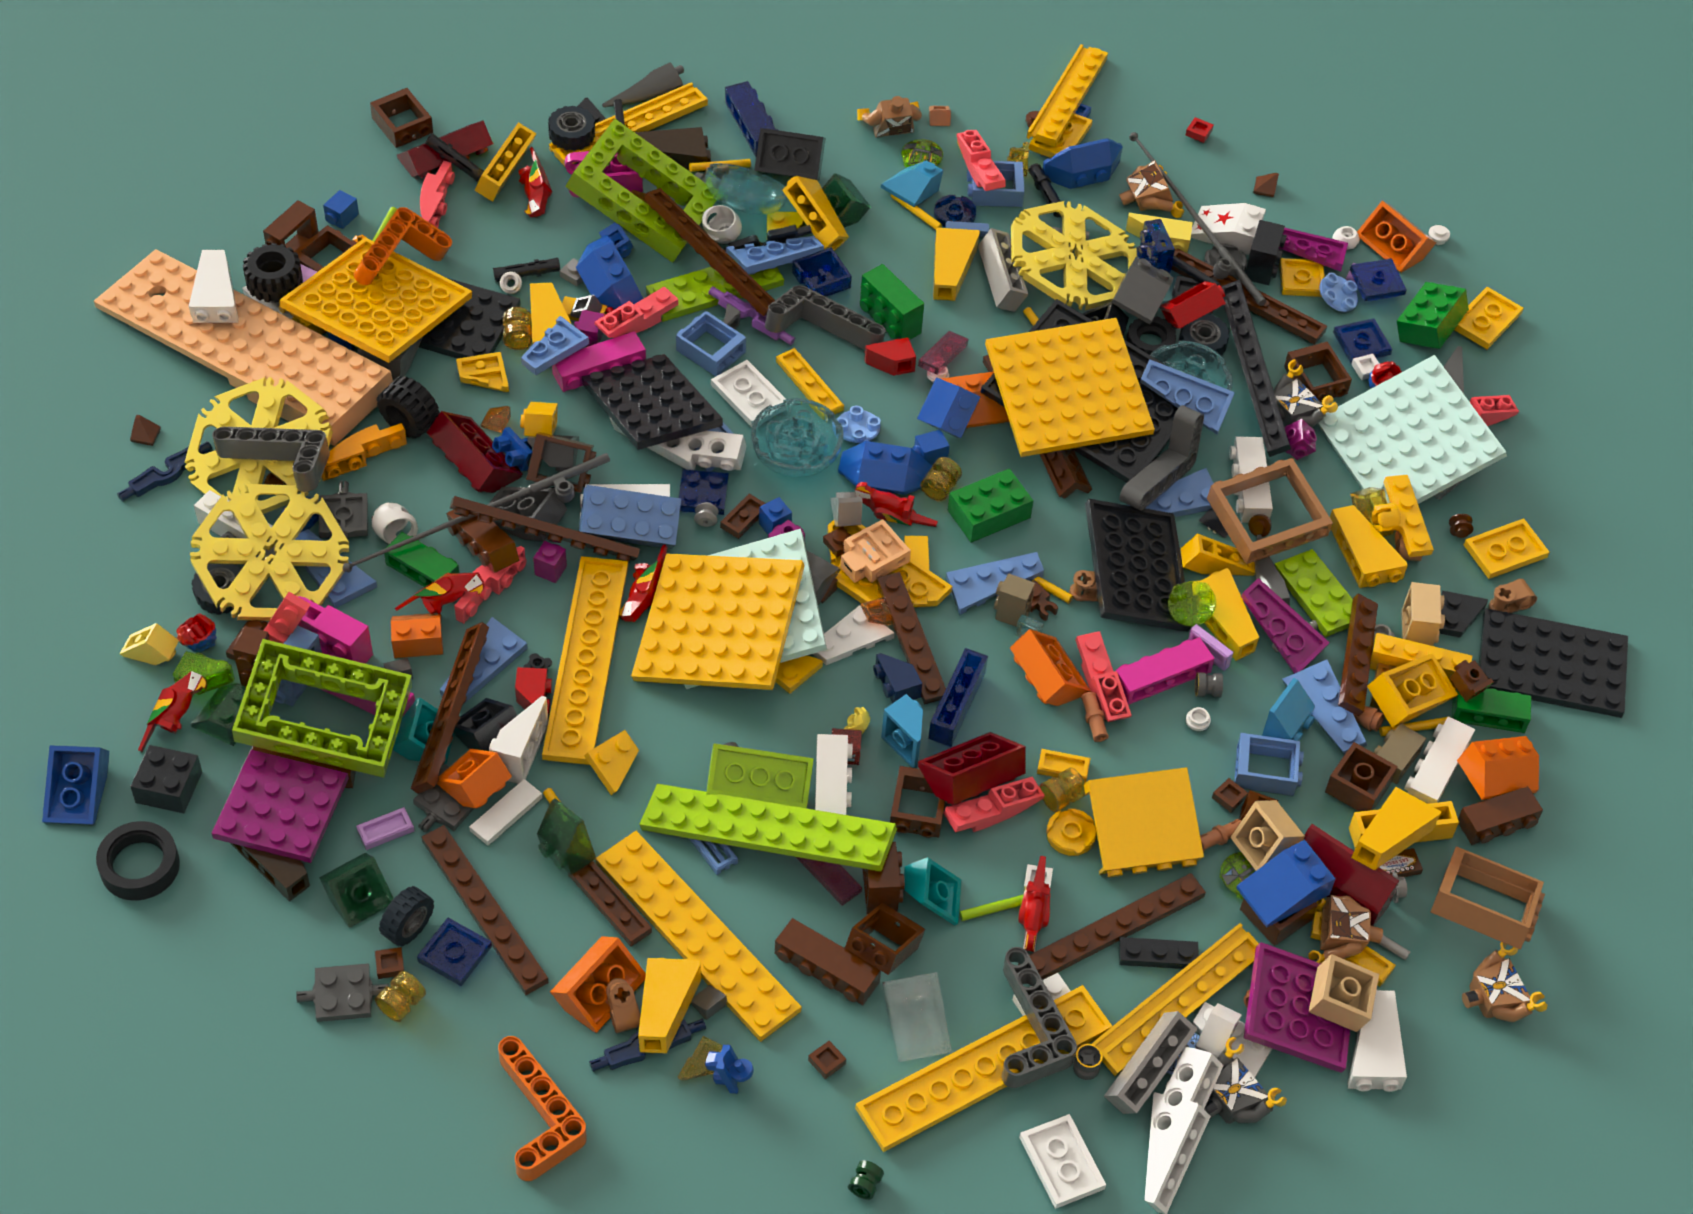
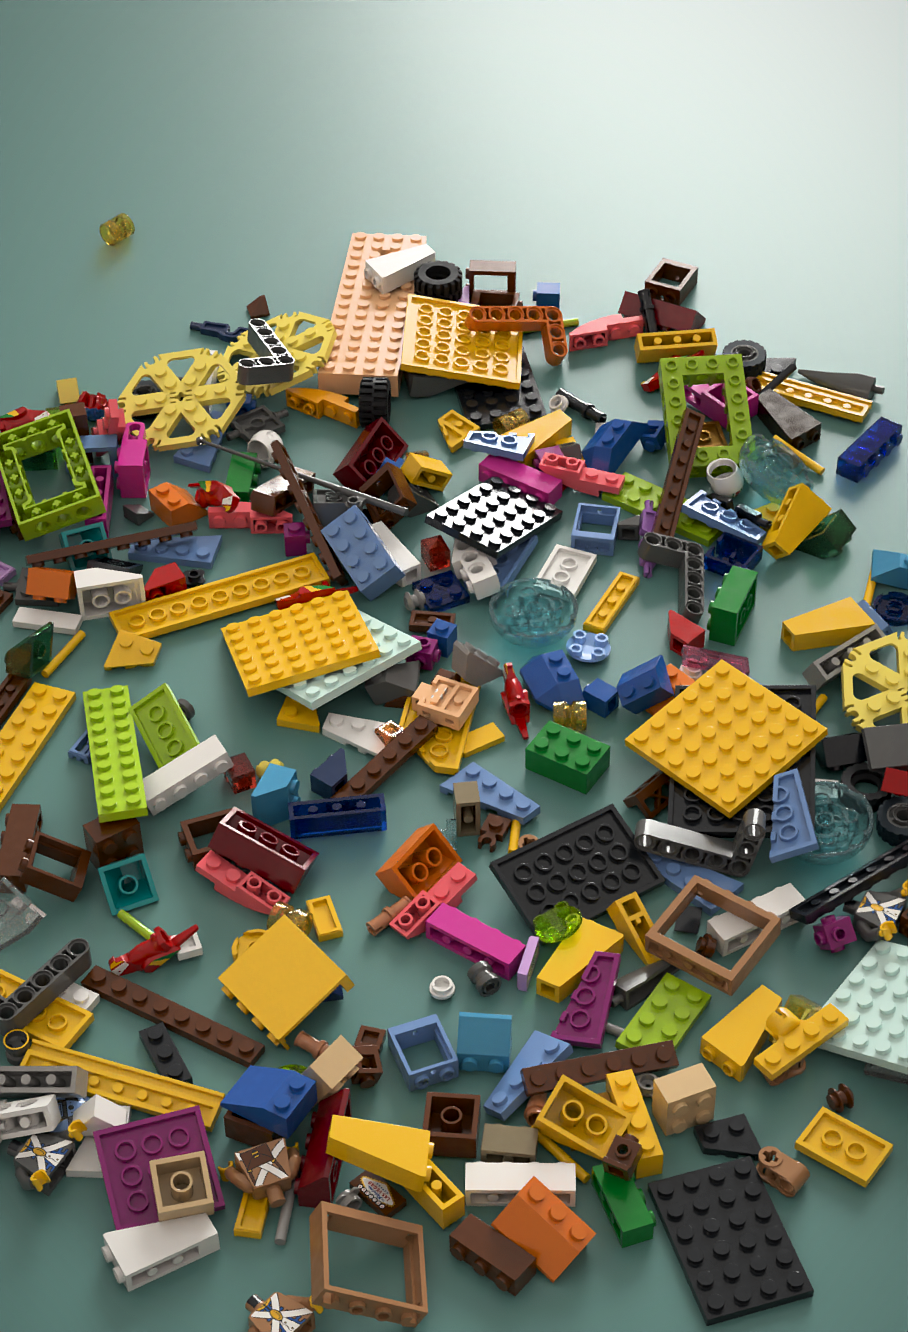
camera: 65 degrees right, 10 degrees down
(653, 468) = (435, 553): none -> clear red brick
(790, 154) = (842, 479): black brick -> none

